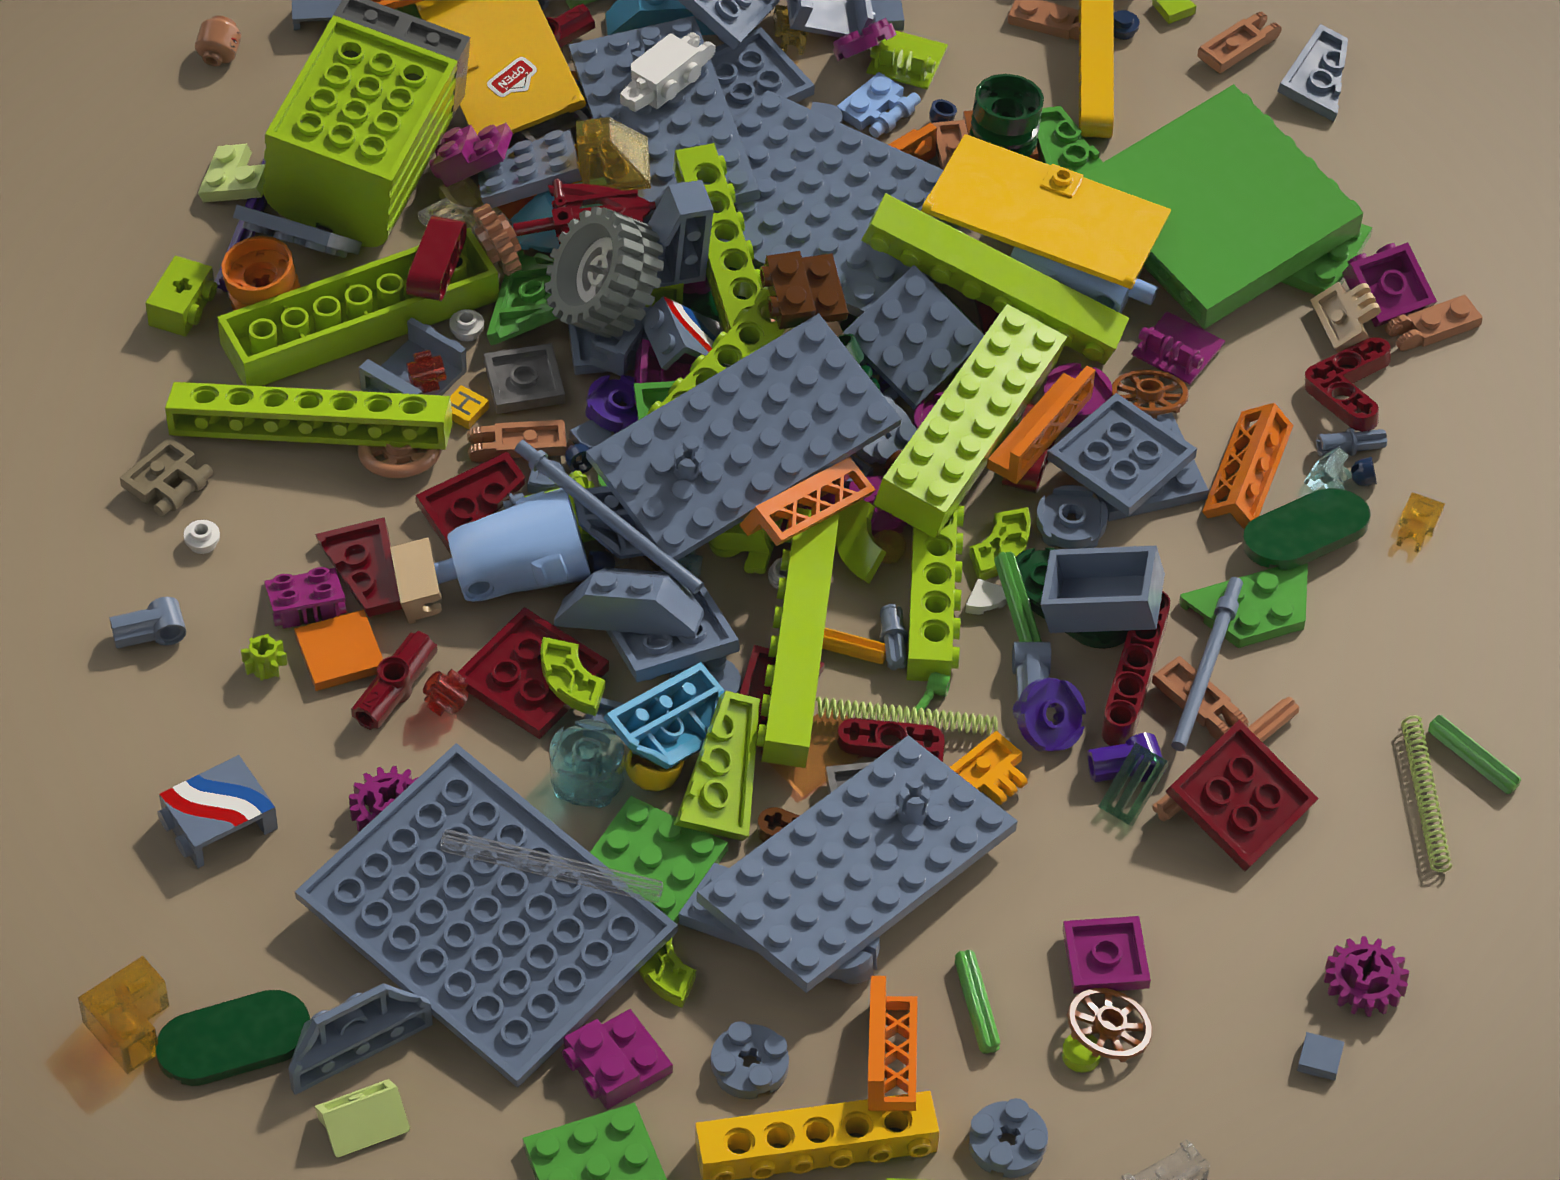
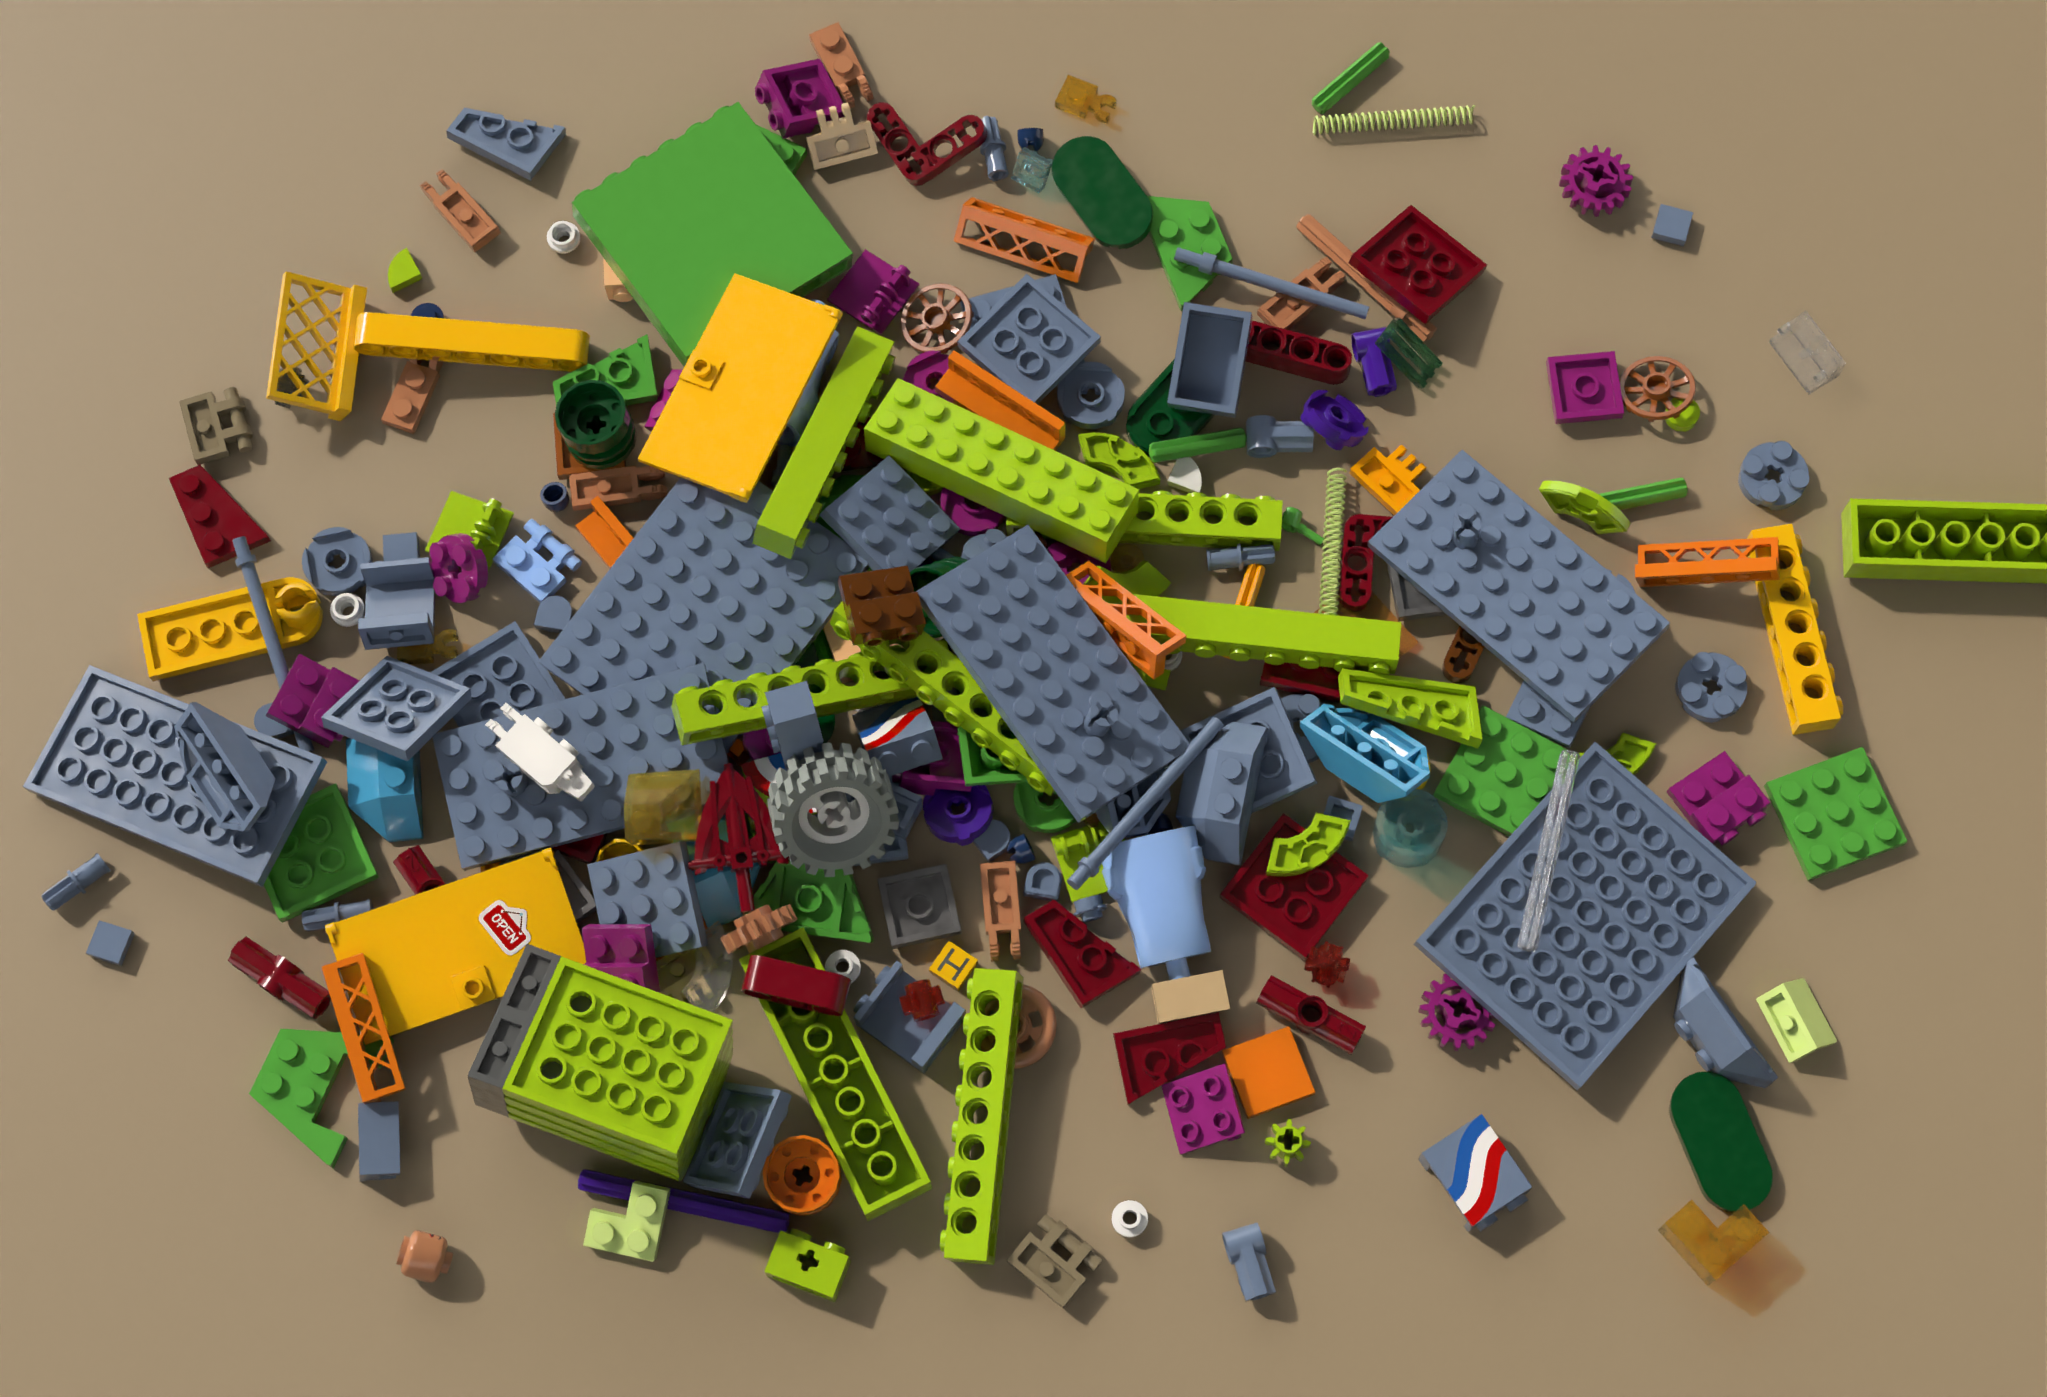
camera: 85 degrees left, 20 degrees up
(956, 938) = (1585, 505): none -> lime tile

